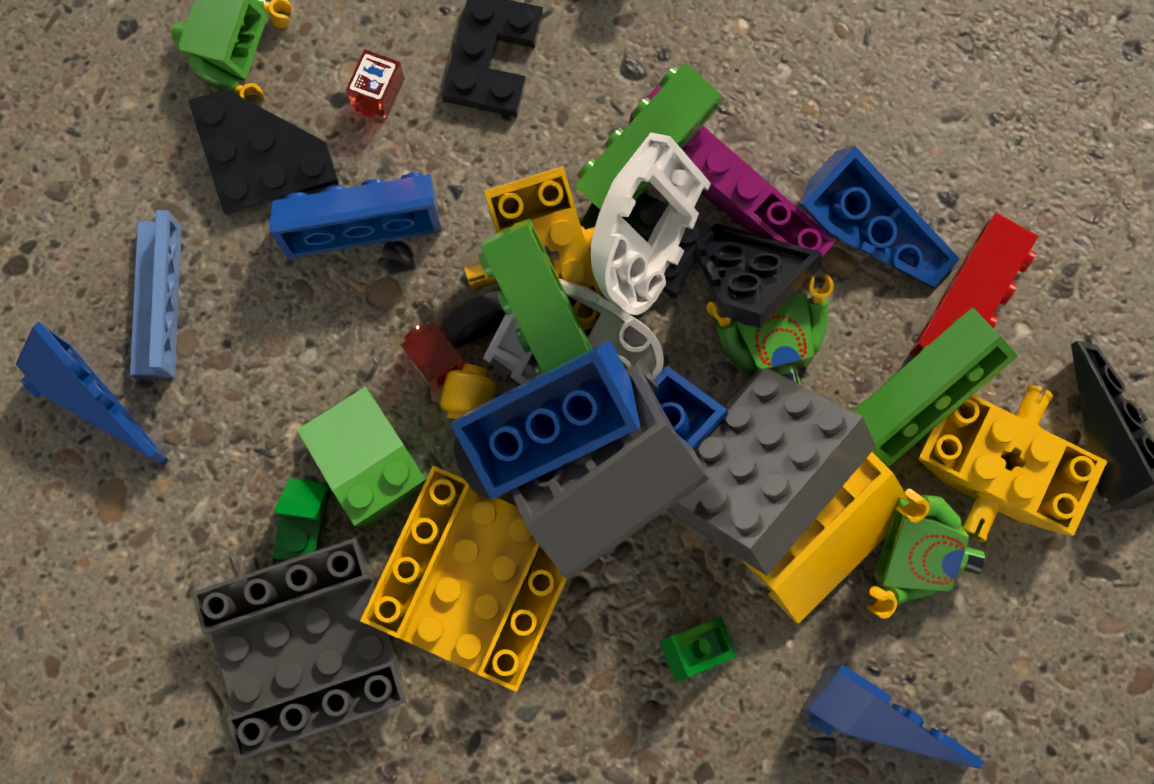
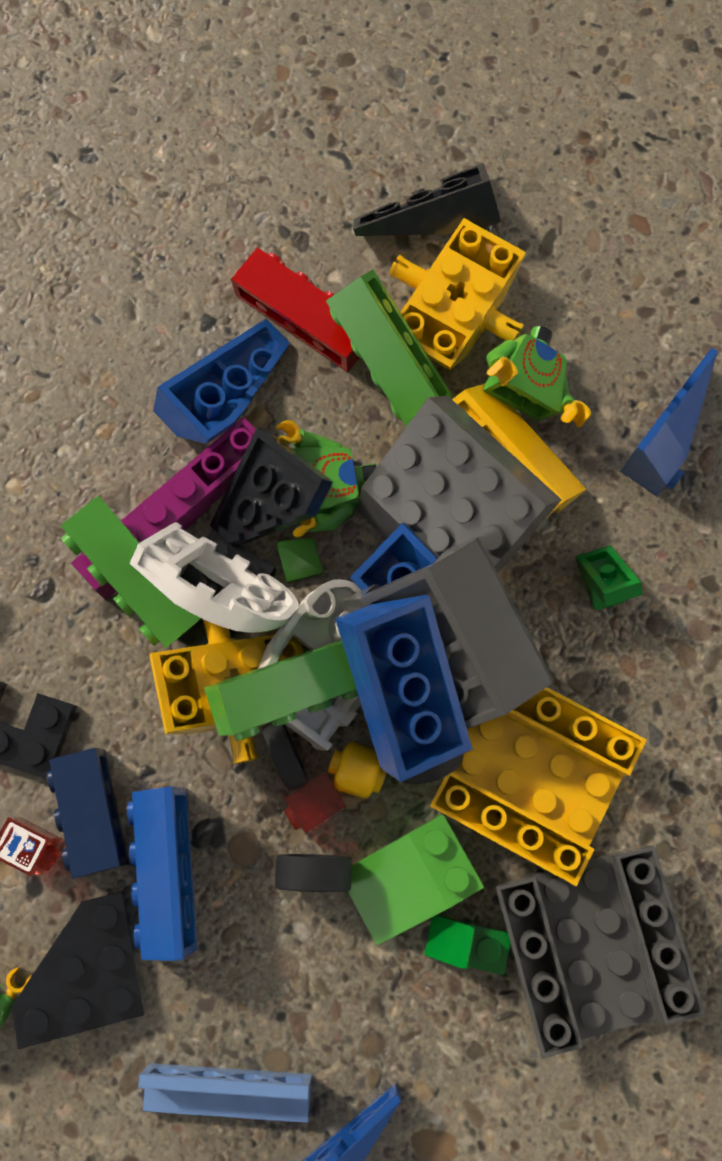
camera: 80 degrees left, 0 degrees up
(361, 356) = (313, 872): none -> black tyre
(410, 137) = (87, 812): none -> dark blue brick
(688, 319) = (299, 559): none -> bright green slope

